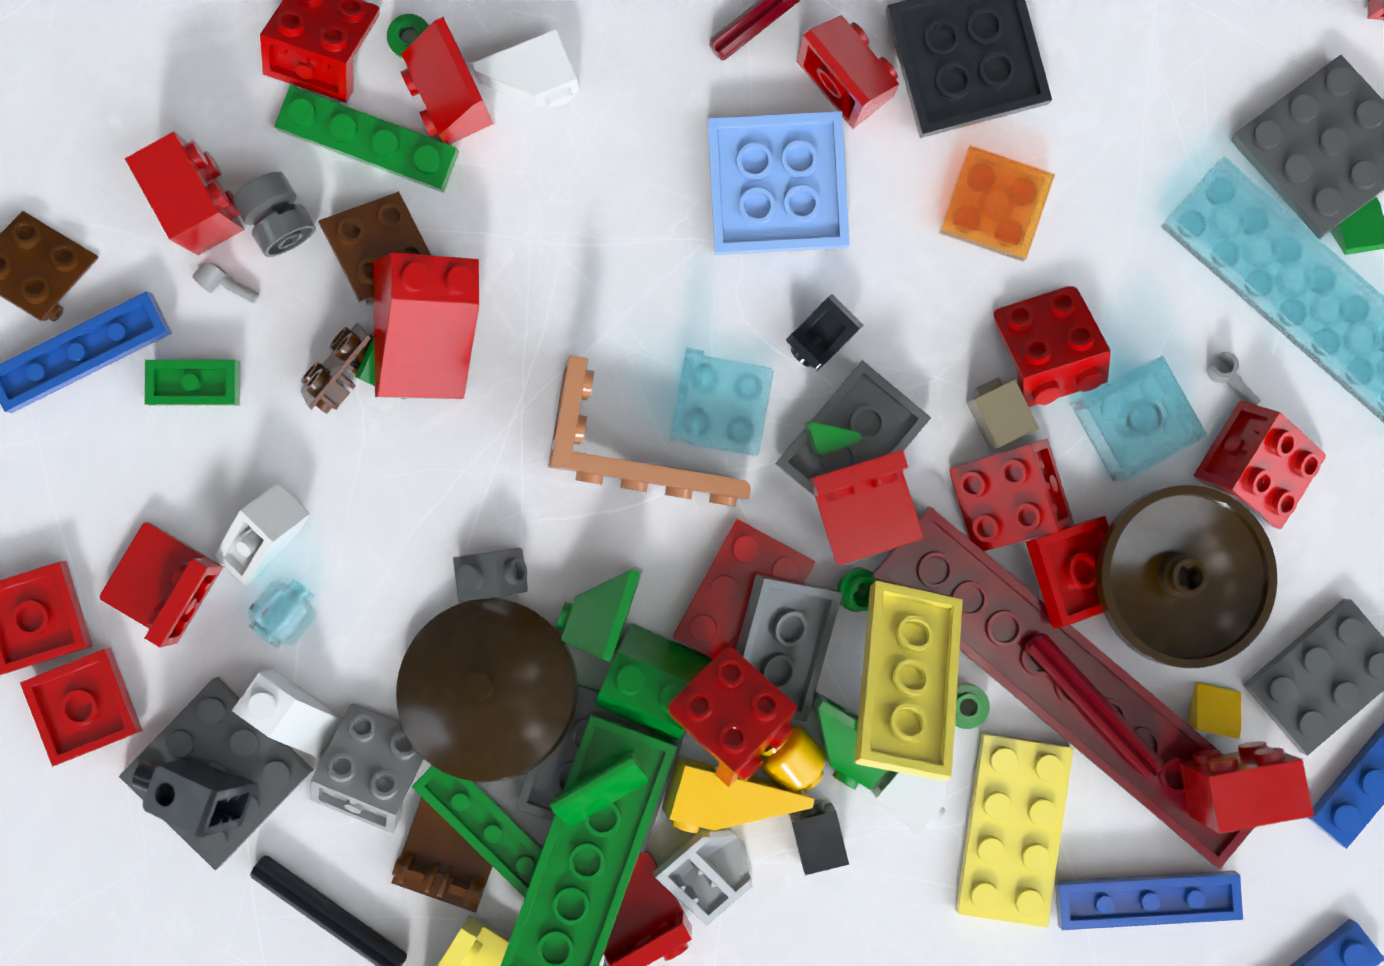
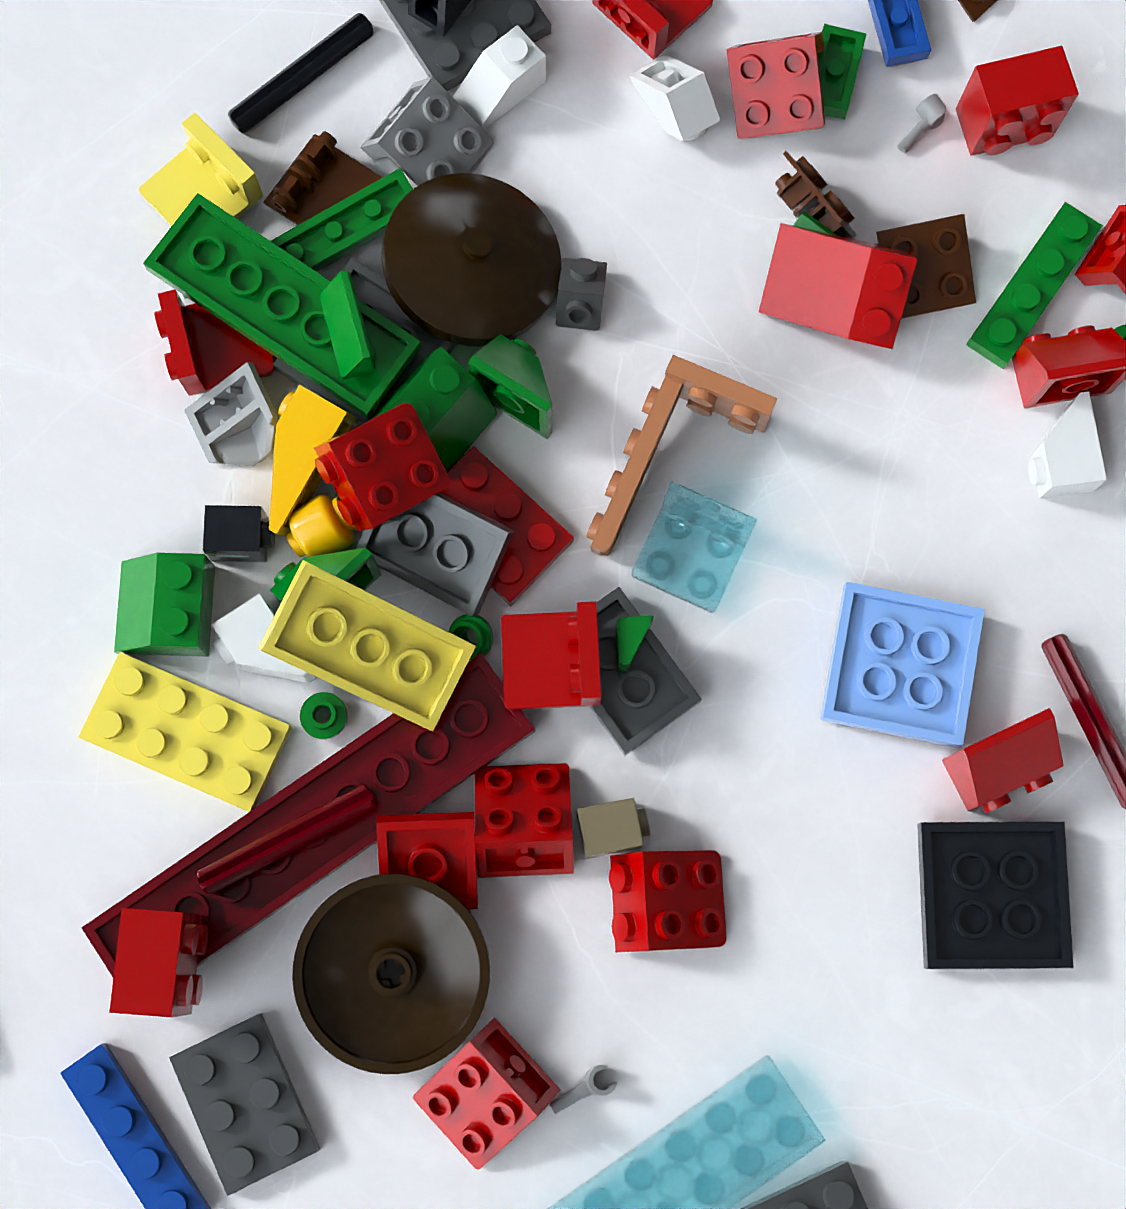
camera: 105 degrees right, 10 degrees down
(223, 436) = (777, 85): none -> bracket
(270, 207) = (987, 176): dark grey wheel -> none
(282, 613) = (595, 96): clear light blue head -> none
(823, 333) = (737, 668): black bracket -> none
(905, 884) = (165, 605): none -> green slope
(996, 203) = (831, 883): clear orange plate -> none
(1138, 419) = (569, 969): clear light blue brick -> none
(1149, 900) = (72, 849): blue plate -> none
(1215, 710) = (243, 973): yellow slope -> none

